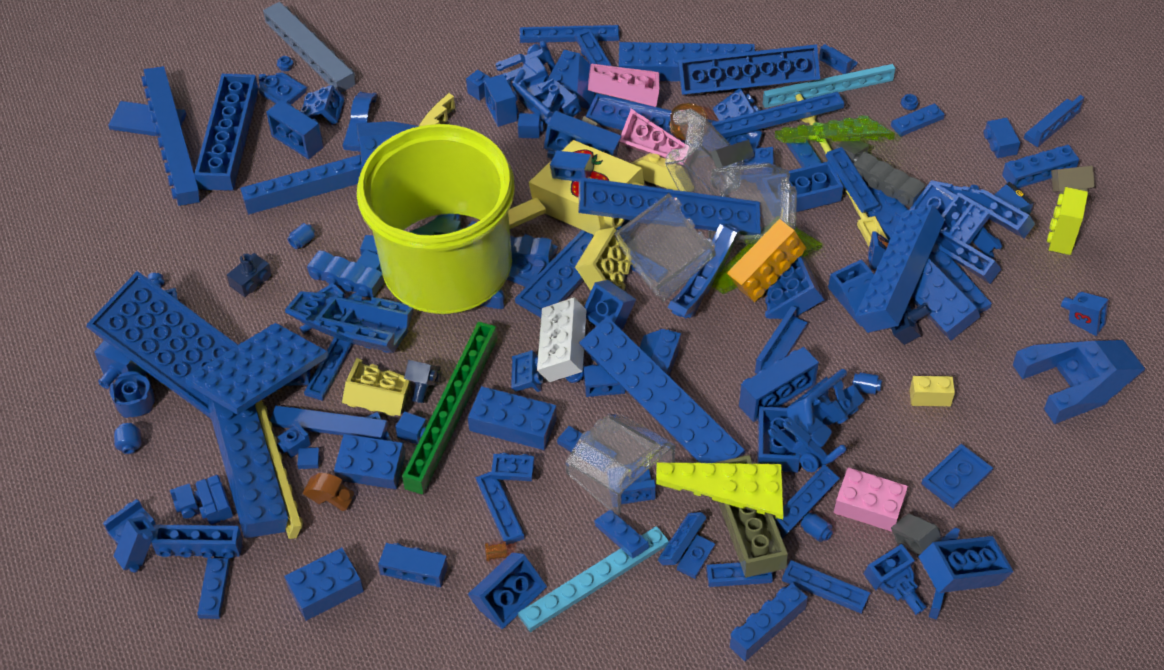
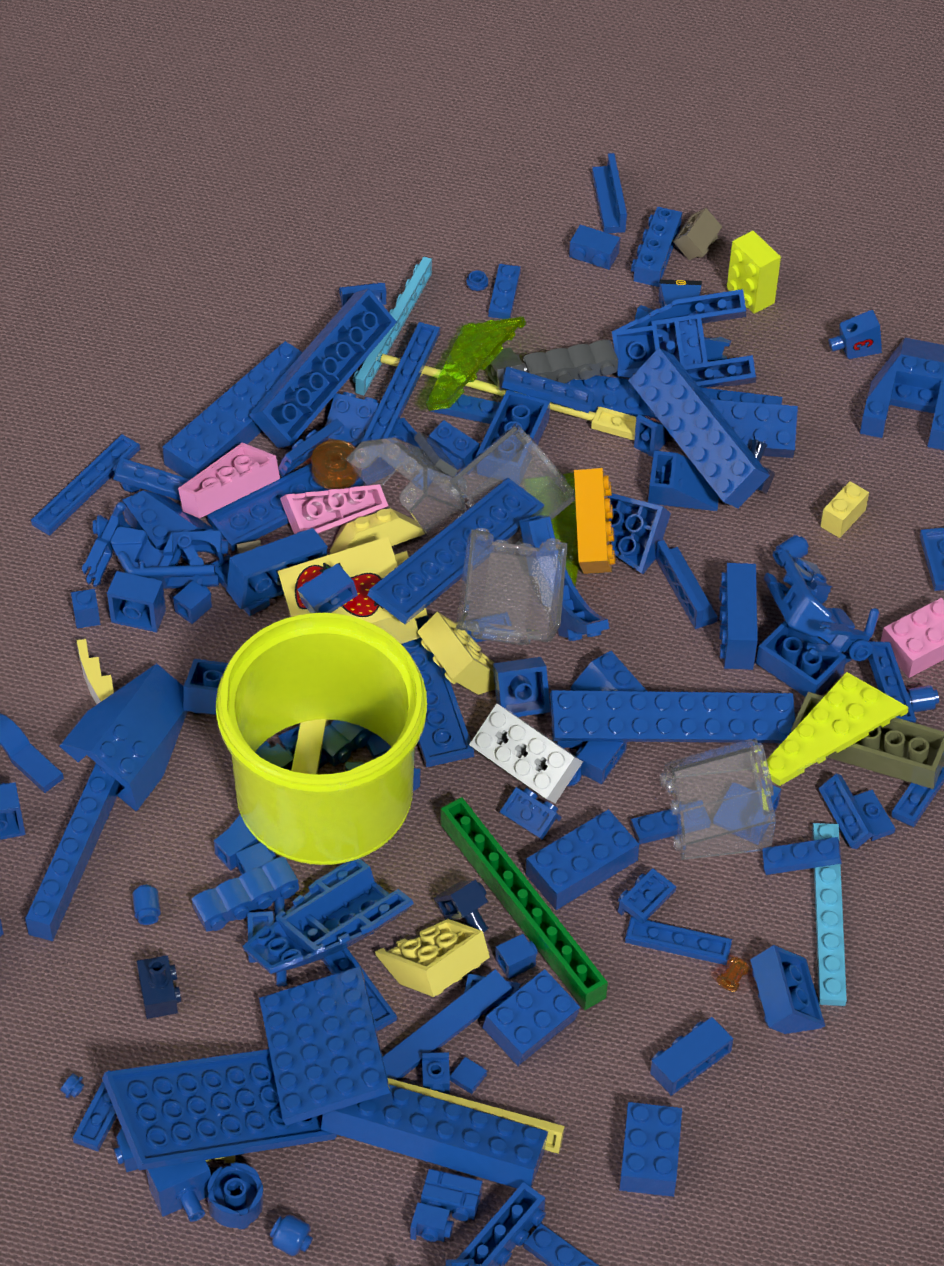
camera: 55 degrees left, 0 degrees up
(328, 488) = (532, 1077): dark orange brick -> none
(671, 98) = (303, 449): none -> blue wing

